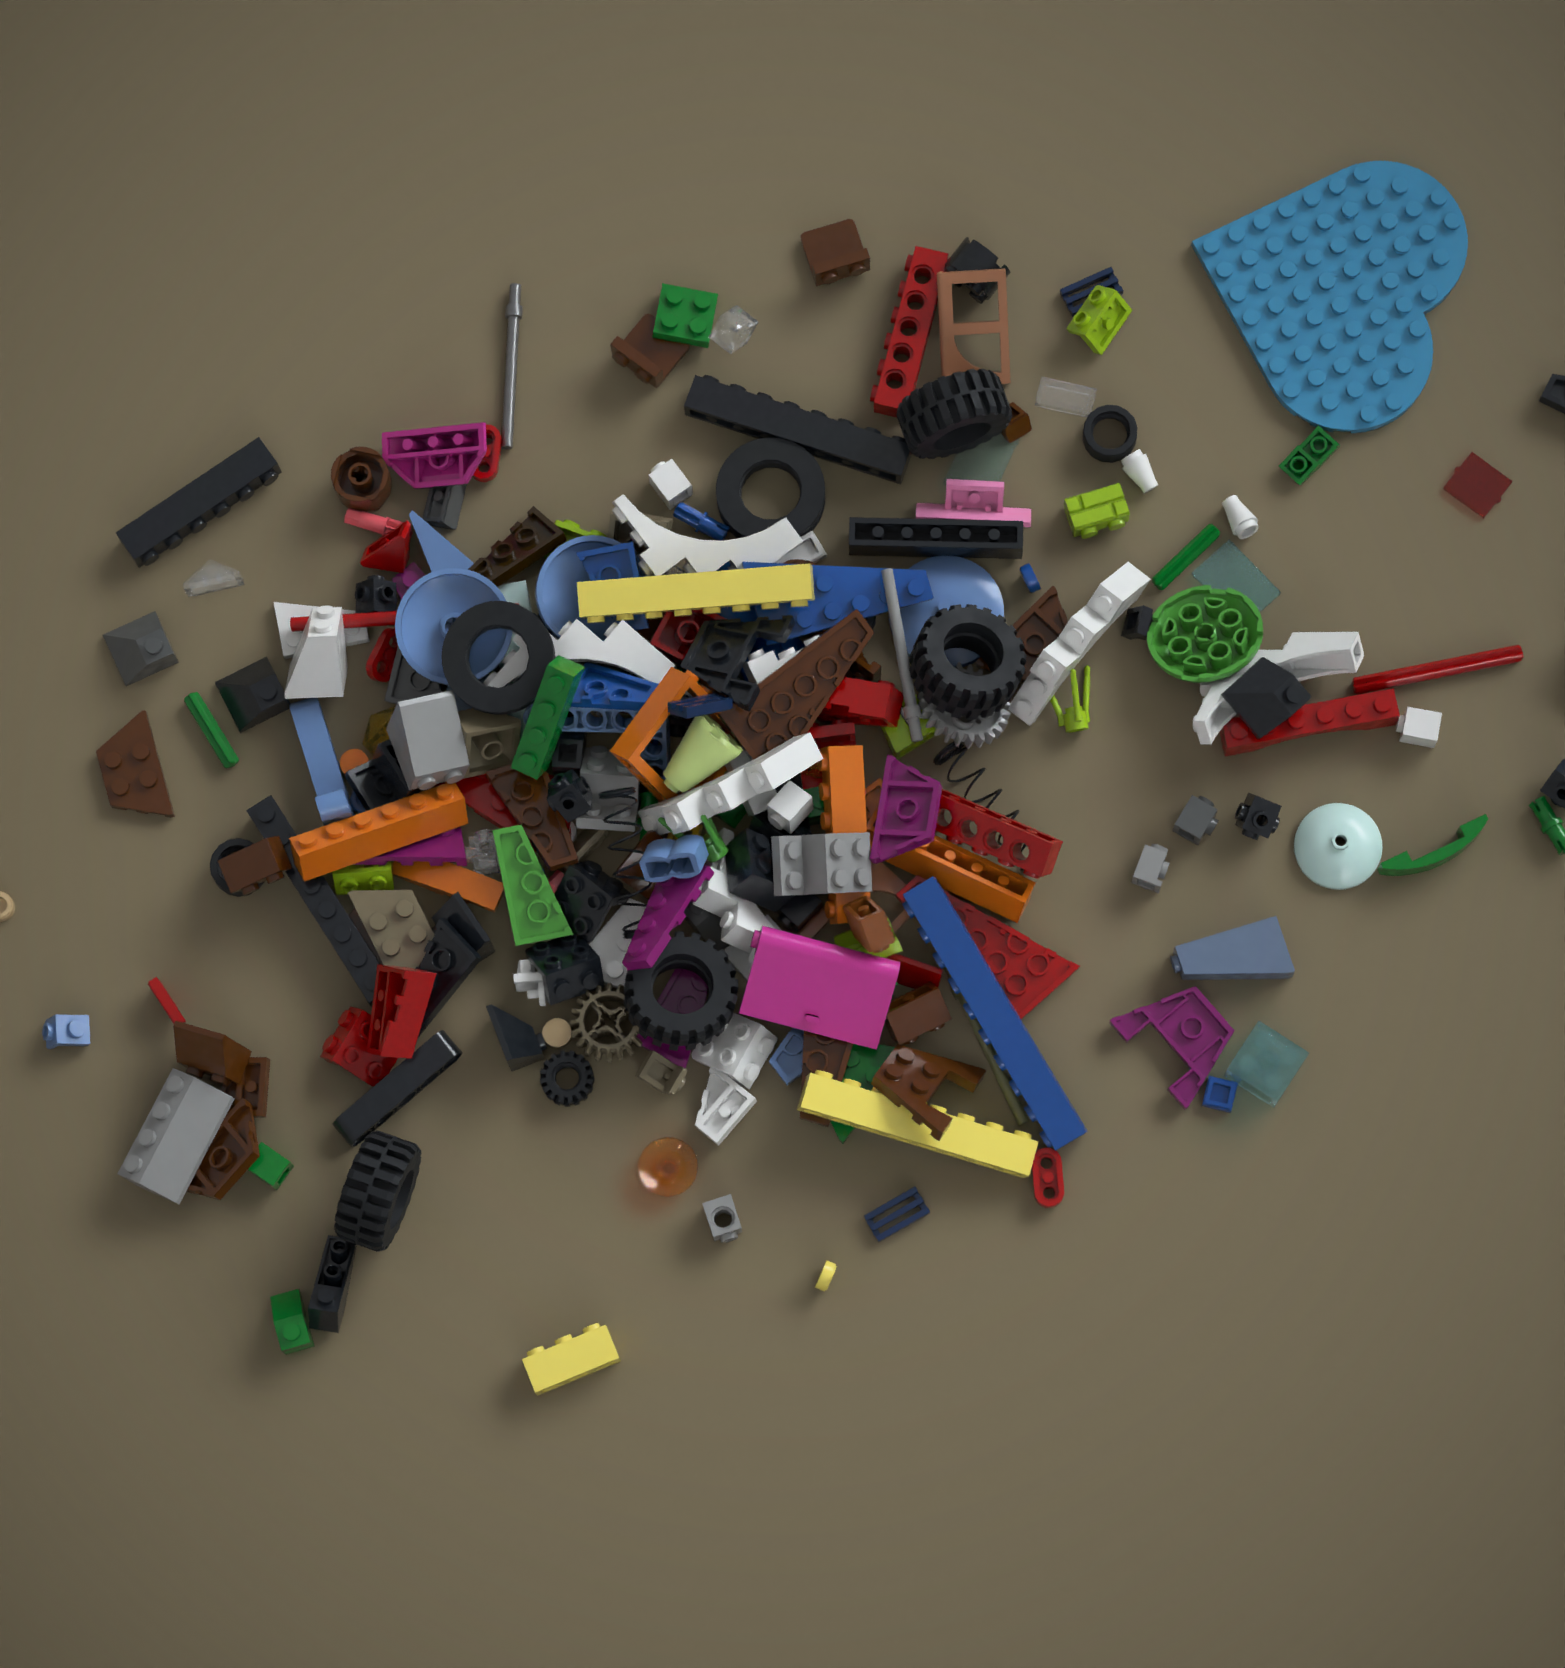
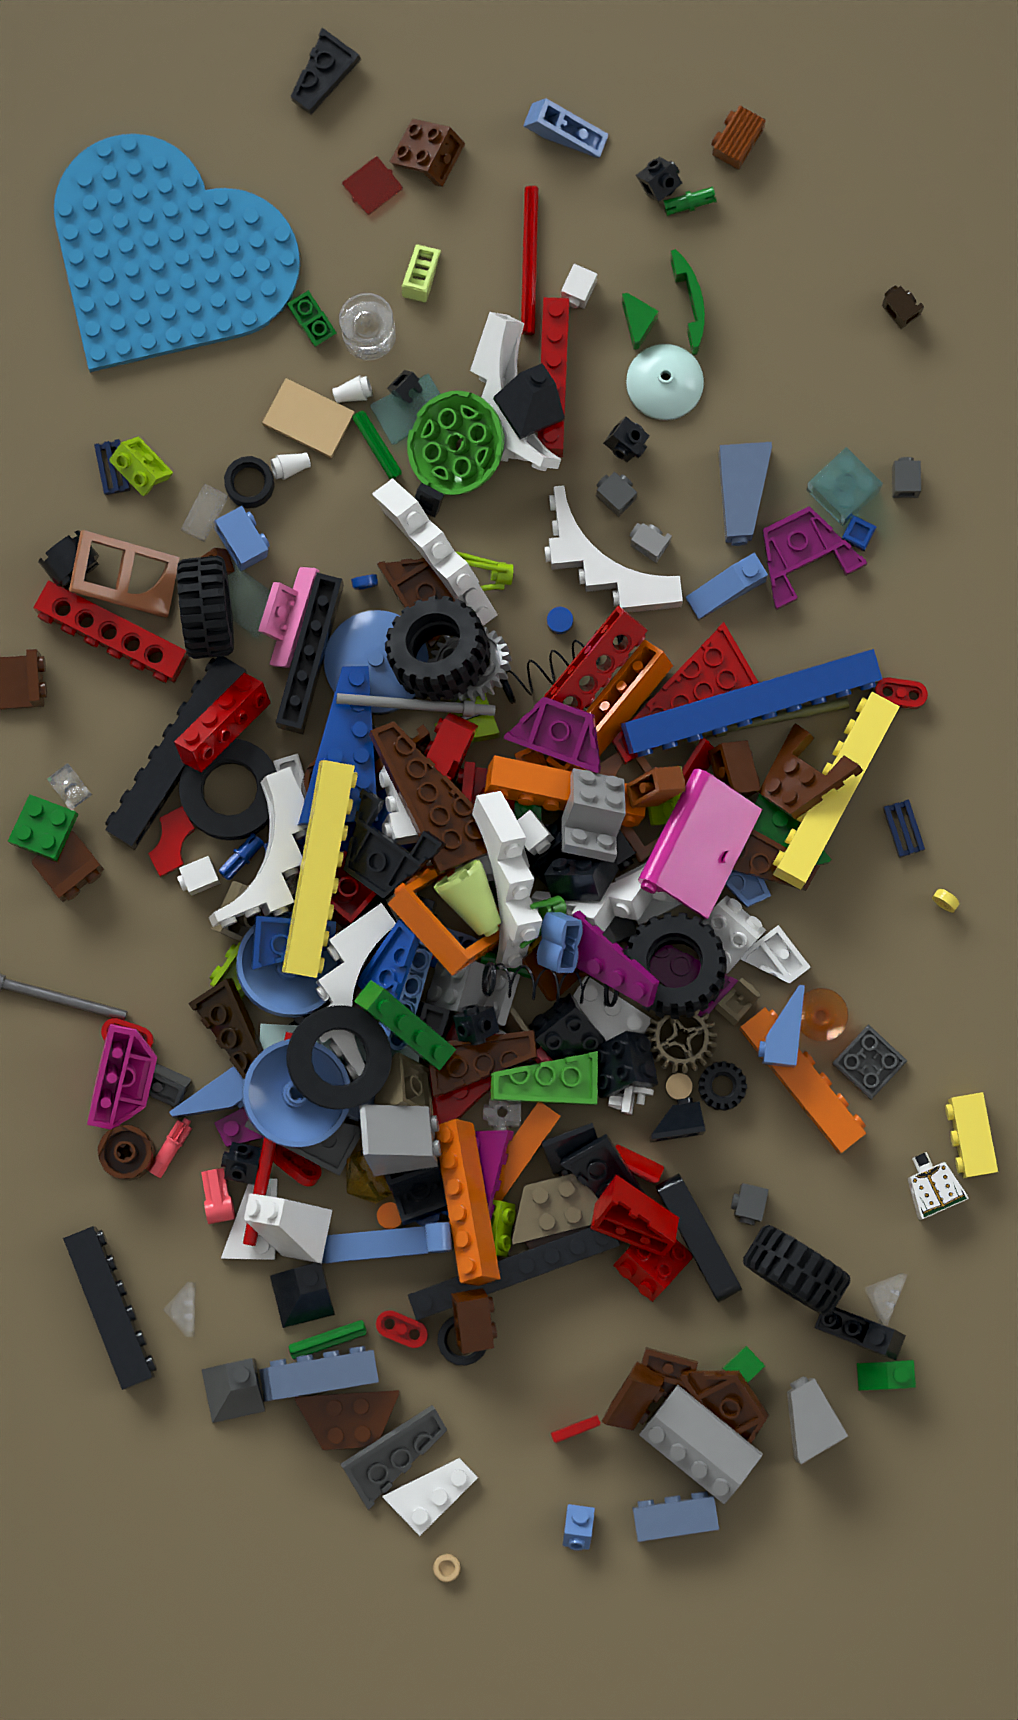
camera: 80 degrees left, 5 degrees up
(71, 873) = (430, 1495): none -> white wing
(95, 1128) = (675, 1516): none -> sand blue brick
(97, 816) = (384, 1460): none -> dark grey wing
(171, 727) = (318, 1375): none -> sand blue wedge
(225, 1247) = (811, 1420): none -> light grey slope
(237, 803) = (402, 1328): none -> red plate
(329, 585) = (218, 1203): none -> coral piece
(376, 1302) = (885, 1295): none -> clear slope
(390, 551) = (199, 1142): red slope -> none
(445, 1134) = (749, 1203): none -> dark grey brick
(463, 1008) = (640, 1165): none -> red slope
(505, 1329) = (934, 1187): none -> white torso
(591, 1162) = (809, 1089): none -> orange brick
(628, 1124) = (783, 1038): none -> medium blue slope
(629, 1232) = (869, 1062): none -> dark grey tile
(691, 448) = (175, 830): none -> red tile
(700, 705) = (431, 885): dark blue tile -> none
(718, 1206) = (866, 982): light grey brick -> none
(837, 464) = (222, 722): none -> red brick
(1040, 793) = (560, 620): none -> blue tile
(1045, 439) = (242, 538): none -> medium blue brick
(1096, 511) = (317, 510): lime brick -> none
(1121, 787) = (634, 589): none -> white arch
(1121, 963) = (727, 586): none -> medium blue slope
(1197, 479) = (308, 418): none -> tan tile
(1259, 566) = (403, 383): none -> black tile
(1294, 1131) = (906, 478): none -> dark grey brick
(1318, 498) = (364, 313): none -> clear wheel
(1369, 564) = (416, 288): none -> yellowish green slope
(1399, 800) = (639, 318): none -> green slope
(1492, 1083) = (901, 306): none -> dark brown brick
(1531, 533) = (428, 149): none -> reddish brown bracket

